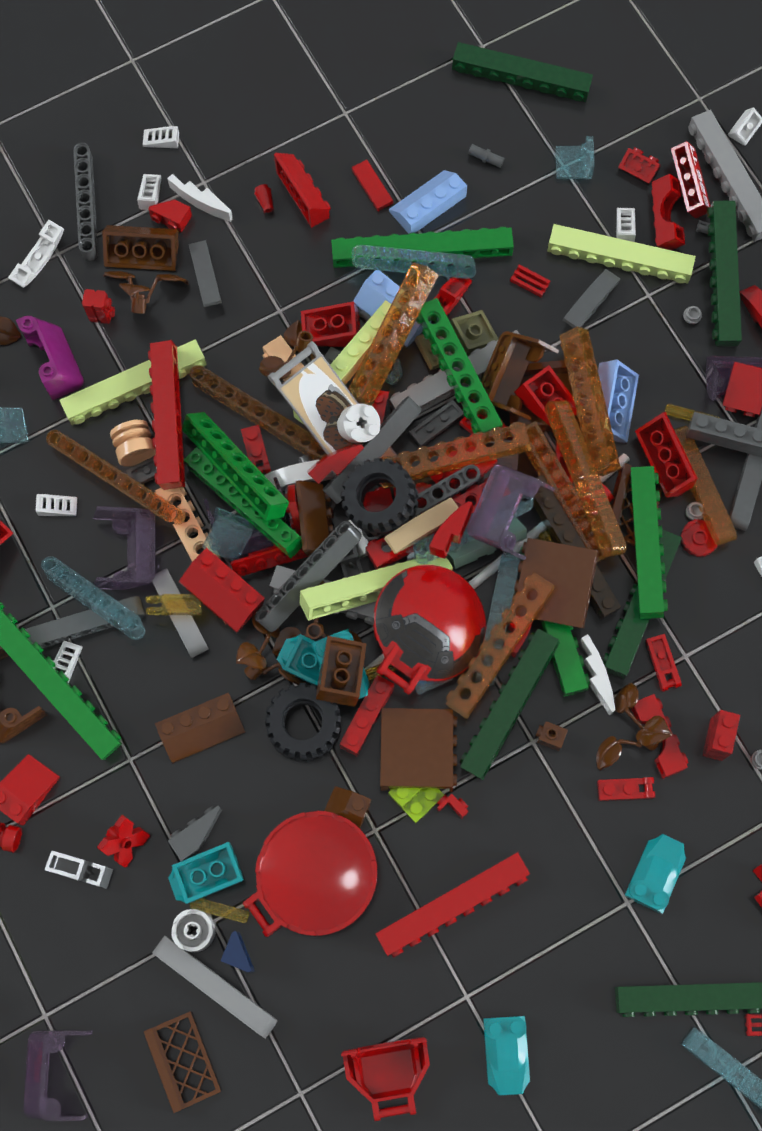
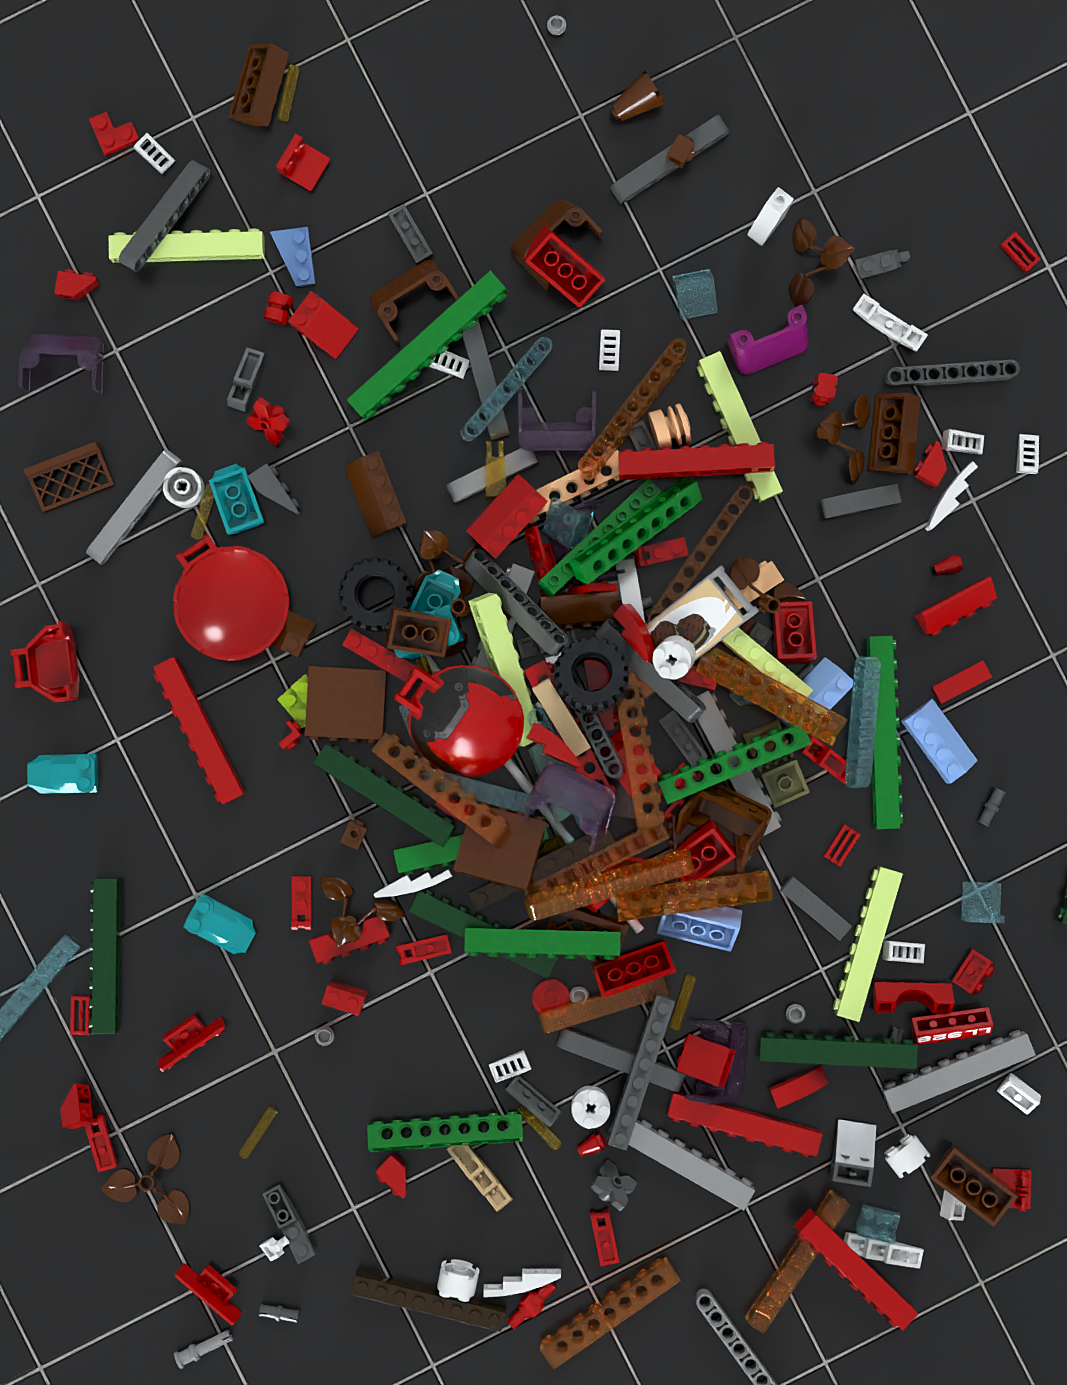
camera: 90 degrees right, 15 degrees up
(236, 953) = (158, 528): dark blue slope -> none

